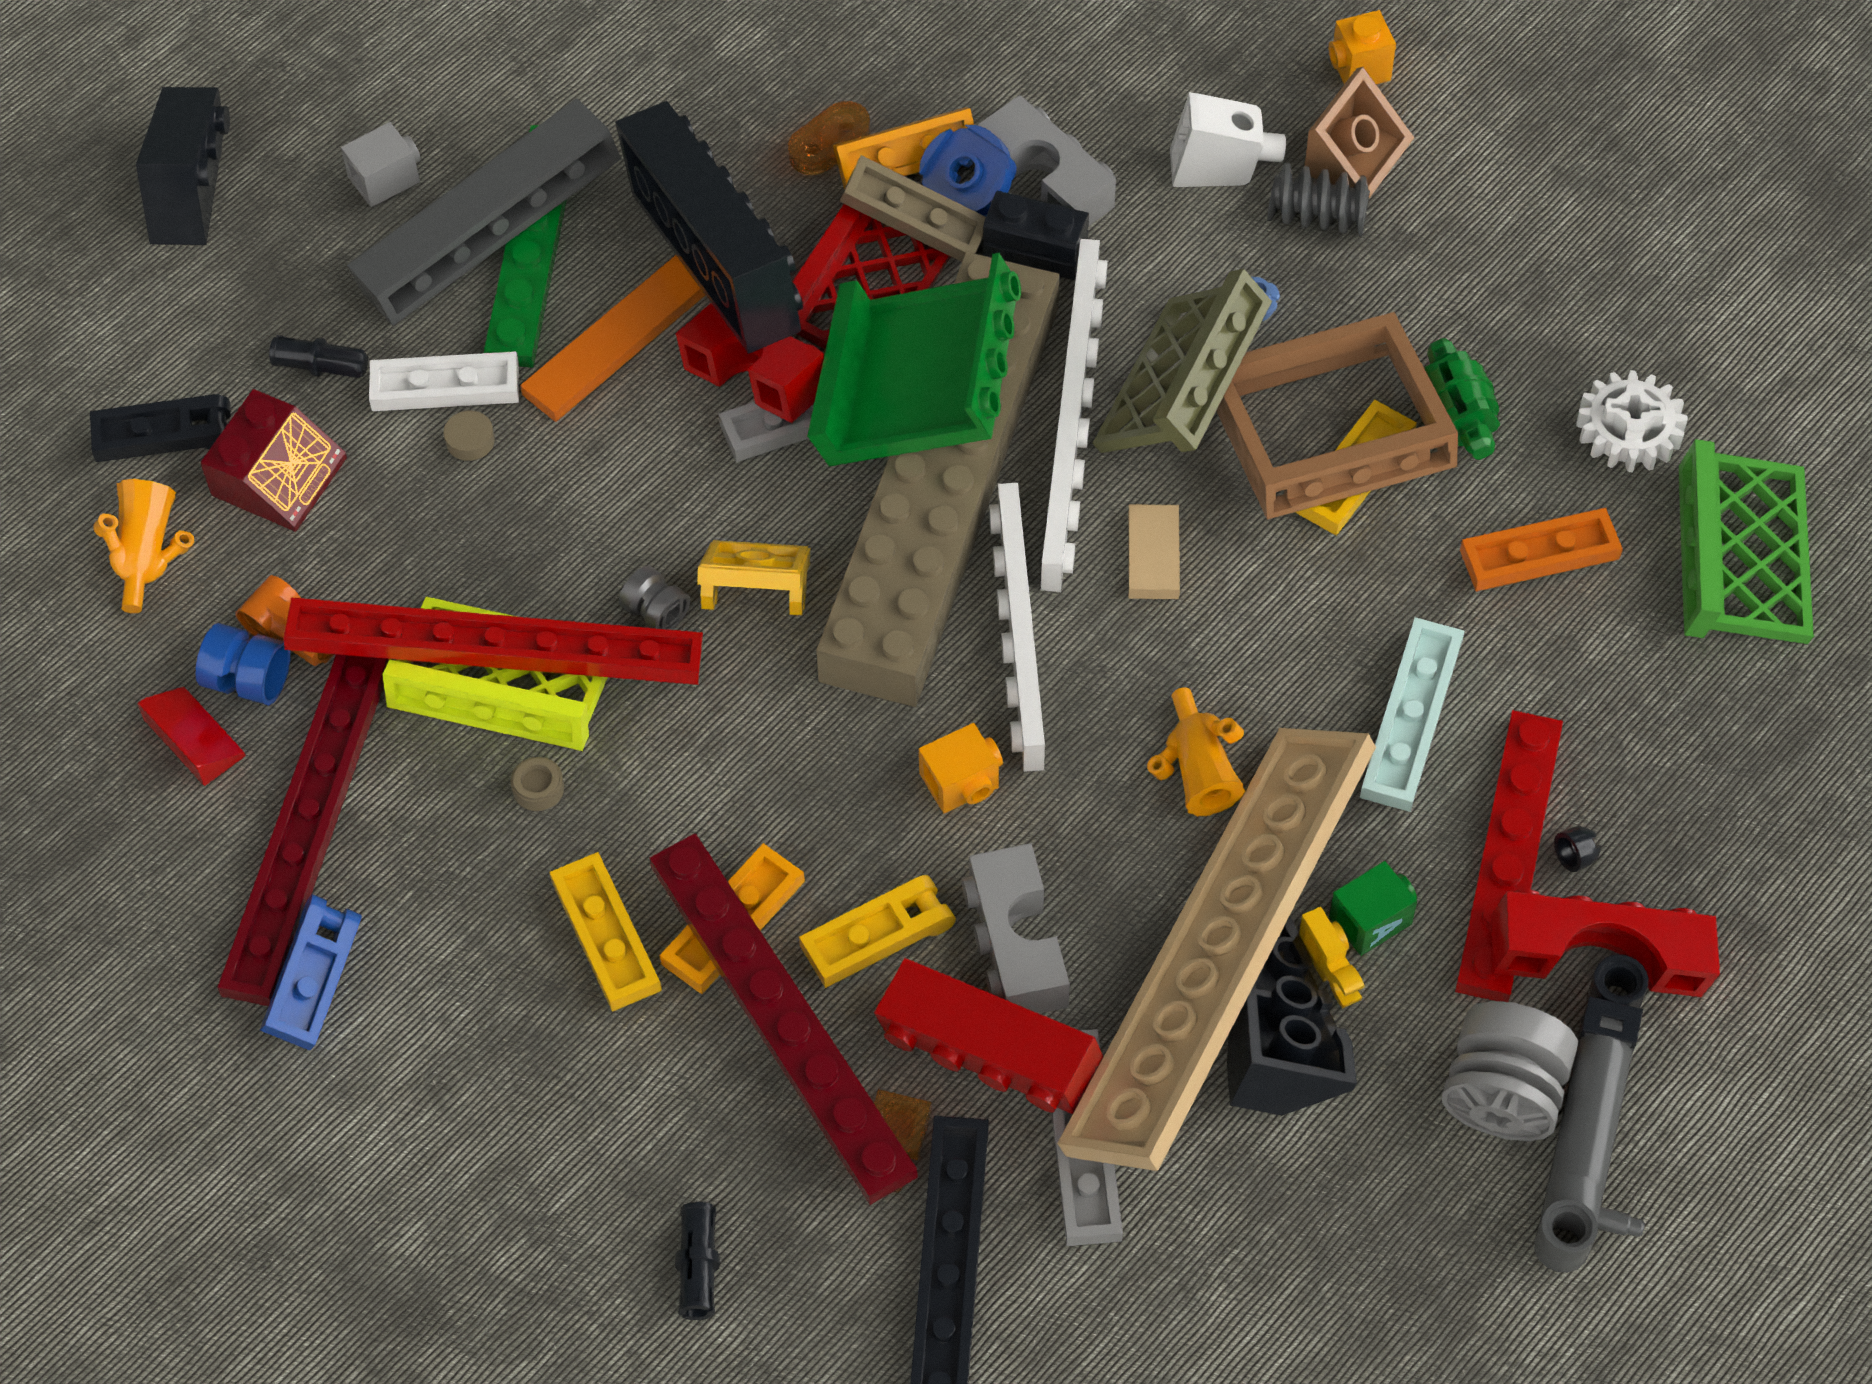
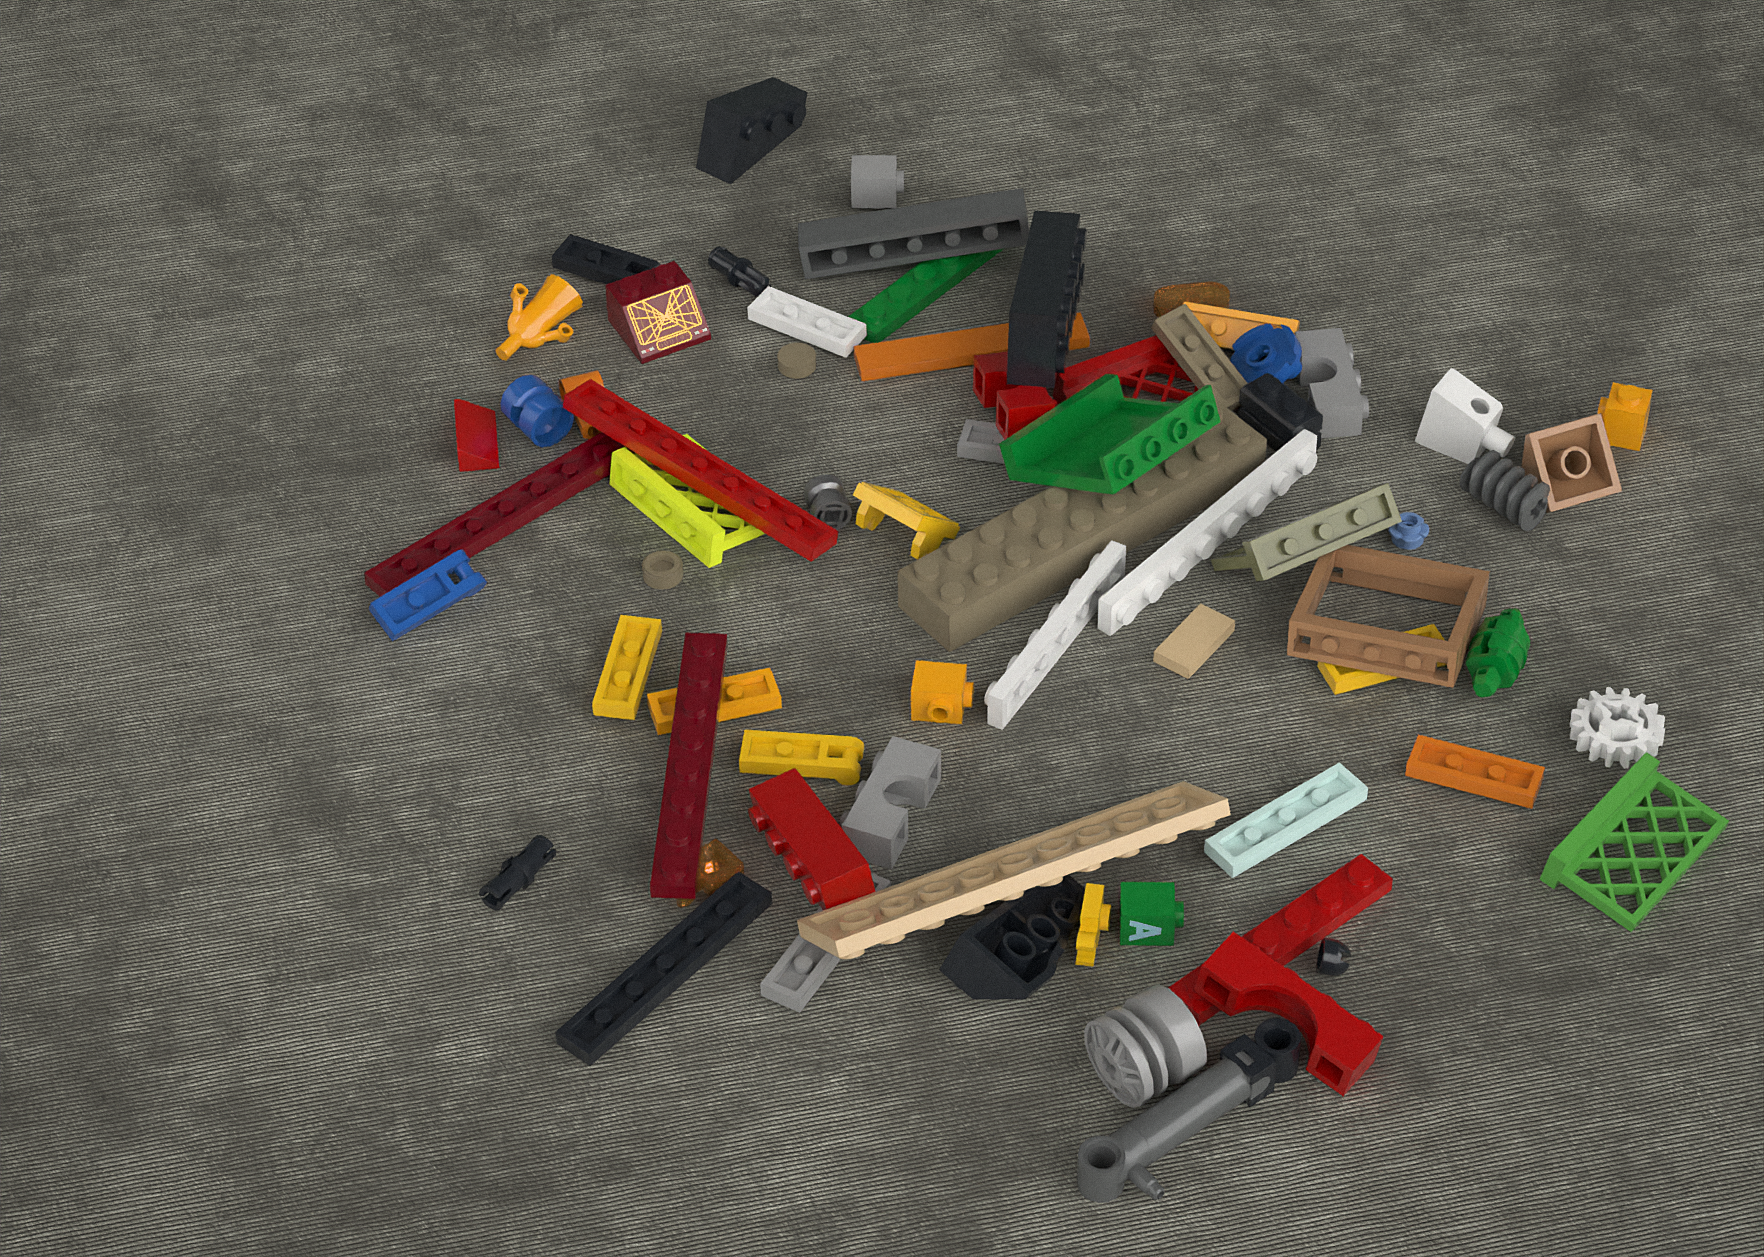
camera: 35 degrees right, 15 degrees down
(1204, 765) = (1107, 770): light orange piece -> none

